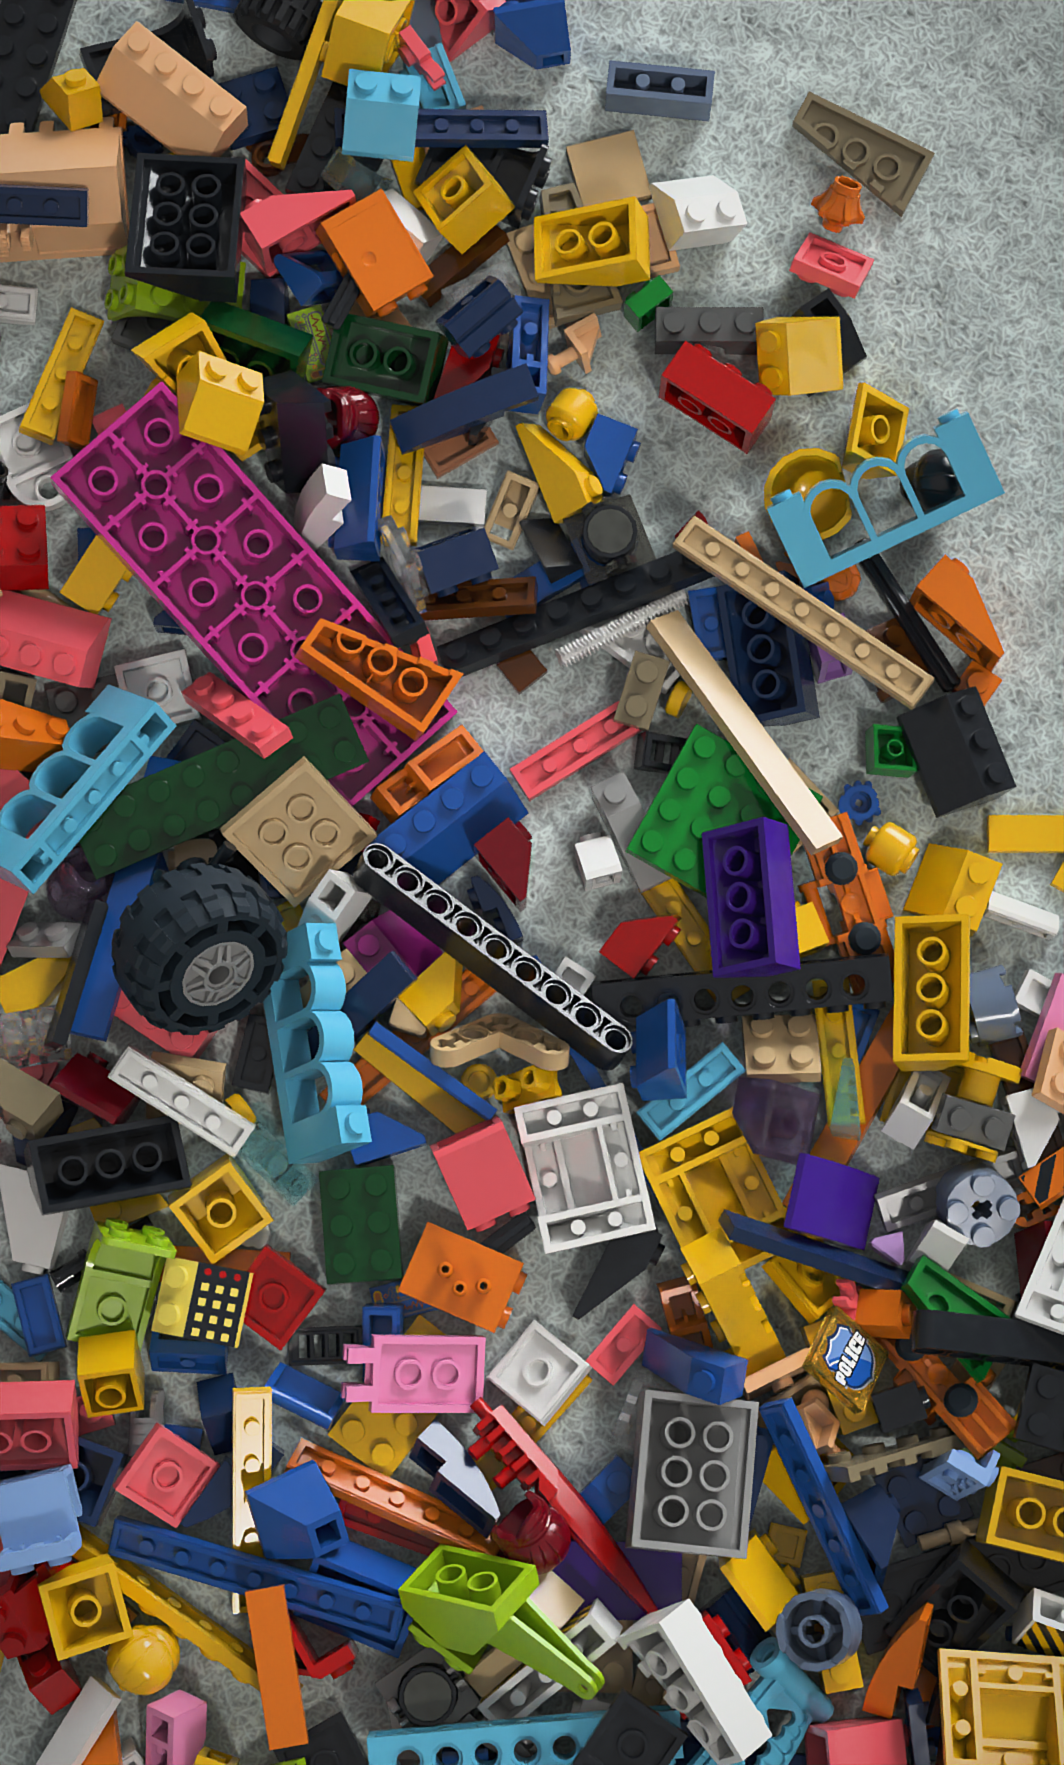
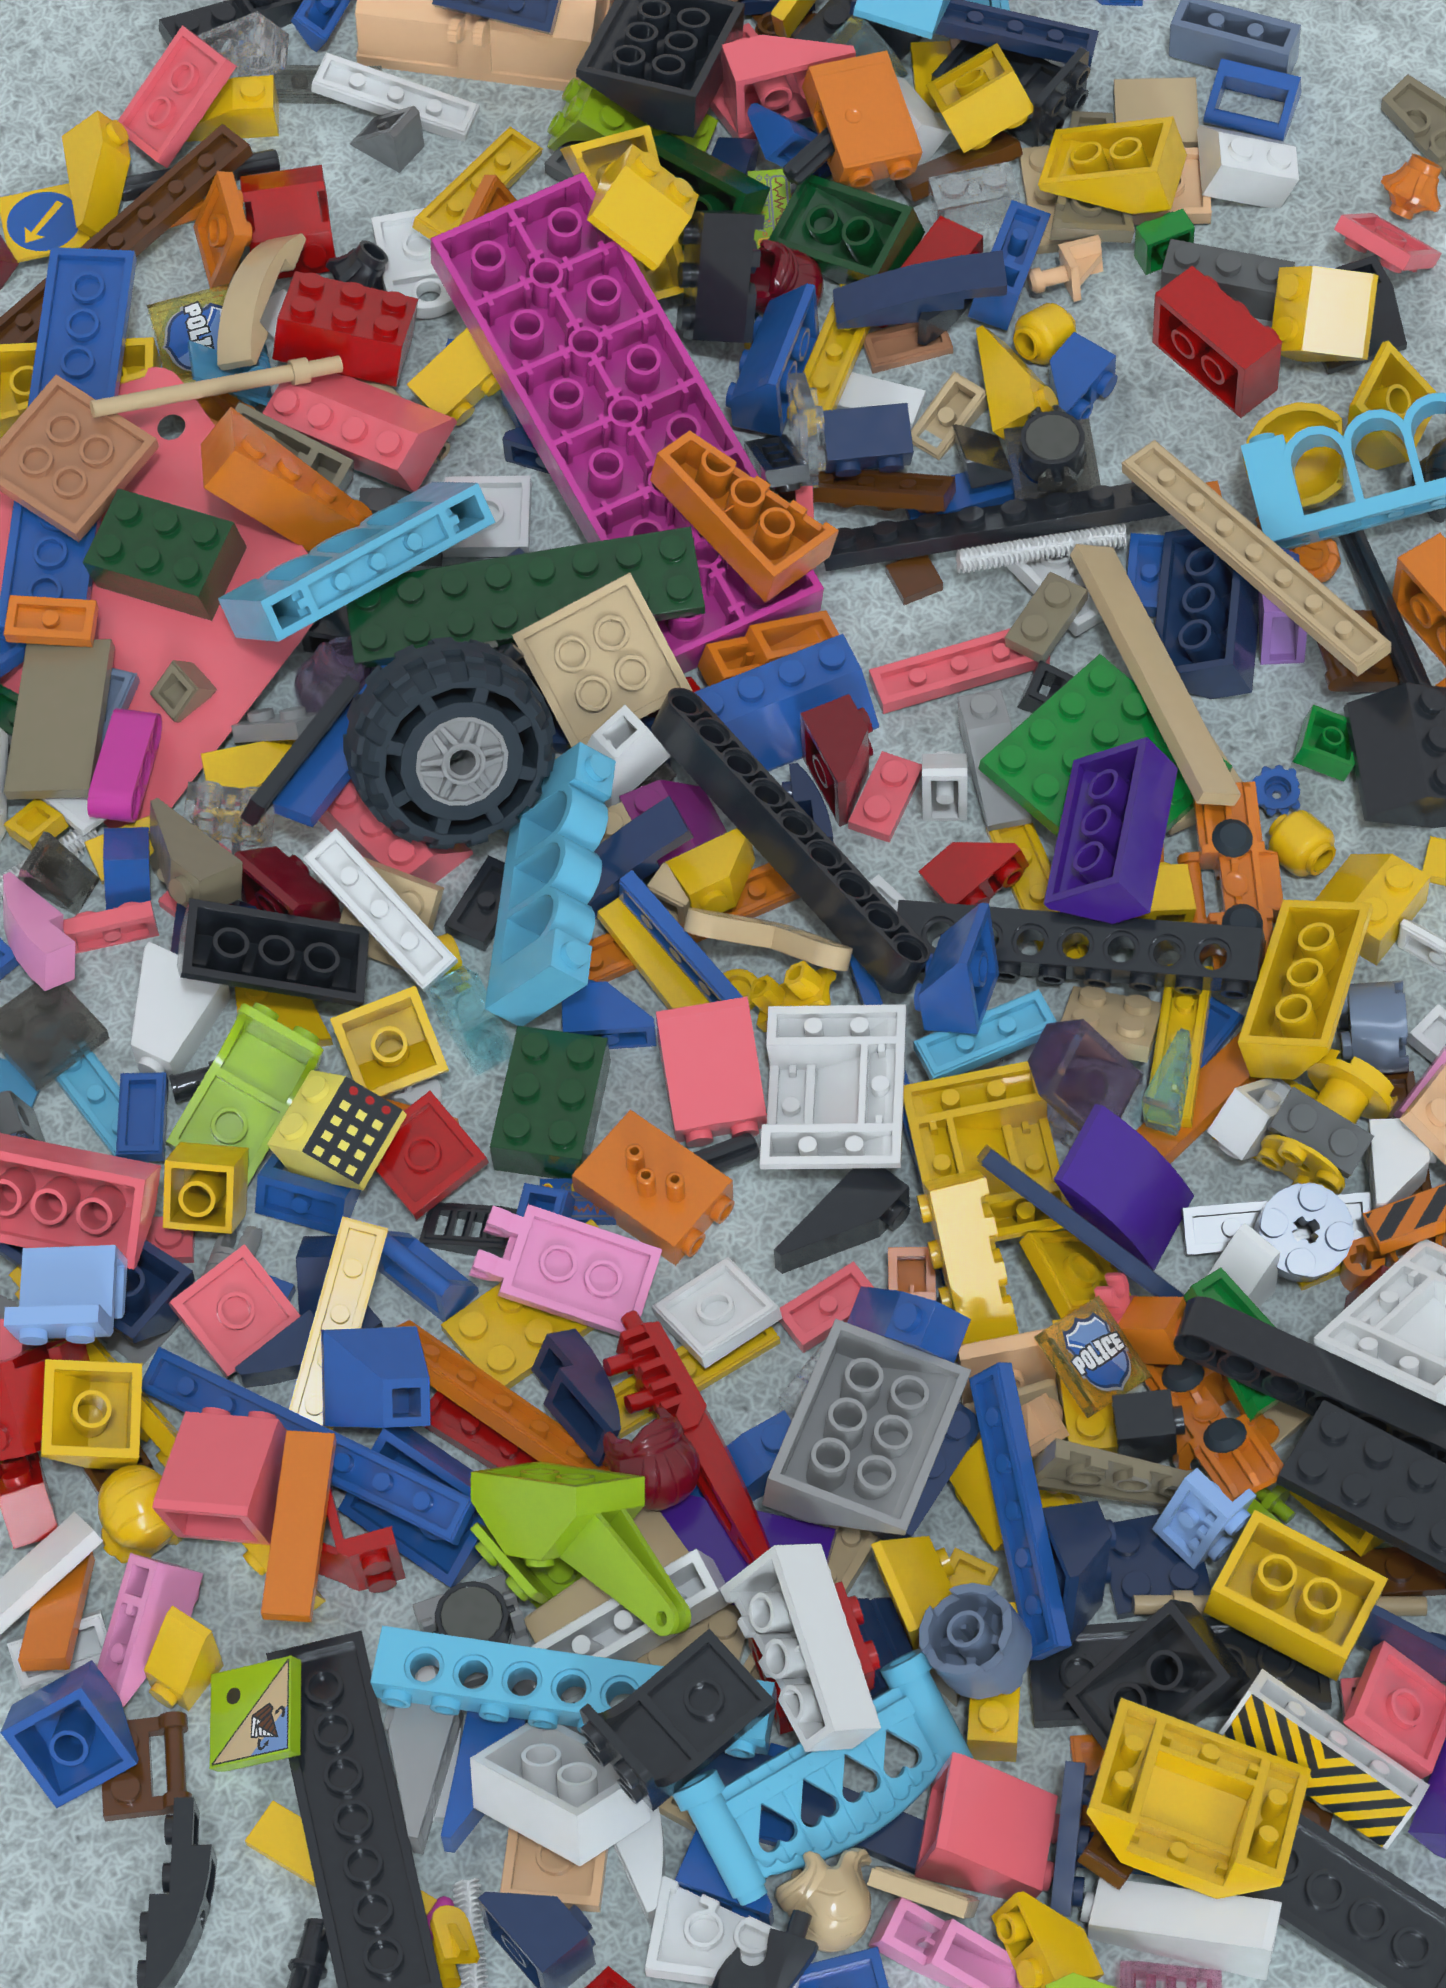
camera: 20 degrees right, 20 degrees down
(203, 1633) = (223, 1477): none -> coral slope
(237, 715) = (567, 529): coral plate -> none
(321, 505) = (729, 344): white slope -> none
(480, 318) = (963, 203): dark blue brick -> none
(550, 878) = (885, 796): none -> coral plate
(678, 699) = (1089, 641): yellow tile -> none
(689, 126) = (1254, 82): none -> blue tile
(889, 1247) = (1182, 1265): lavender slope -> none
(899, 1664) = (1071, 1724): orange slope -> none

